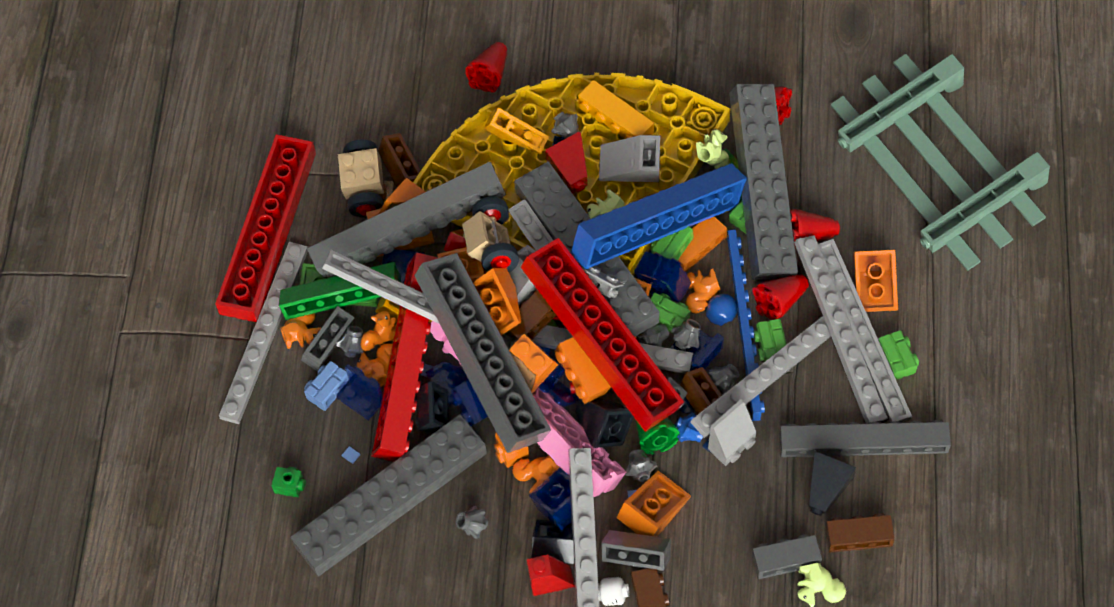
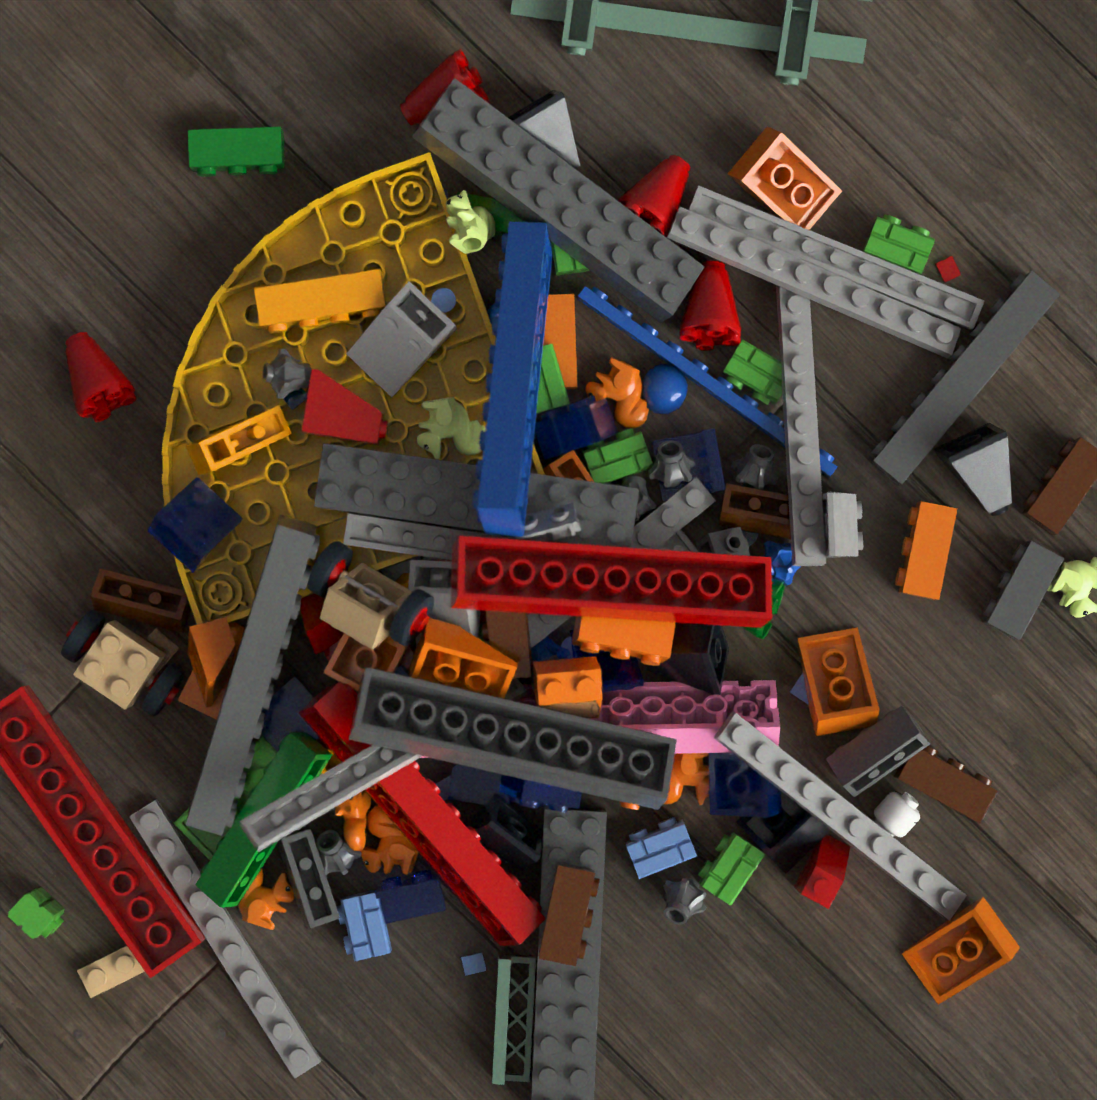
camera: 55 degrees left, 25 degrees up
(201, 293) = (109, 971): none -> tan plate
(205, 234) = (37, 913): none -> bright green brick
(288, 481) = (451, 1064): green brick -> none
(333, 487) = (501, 1019): none -> sand green fence
(415, 461) = (568, 914): none -> reddish brown brick
(458, 142) = (194, 523): none -> clear blue bracket
(489, 490) = (660, 848): none -> medium blue brick
(510, 532) = (730, 867): none -> bright green brick
(640, 466) = (779, 657): dark grey rock -> none
(652, 43) = (236, 150): none -> green brick
(667, 167) = (444, 299): none -> medium blue piece
(761, 493) = (926, 550): none -> orange brick
(796, 155) = (550, 124): none -> slope
(910, 391) = (948, 269): none -> red window

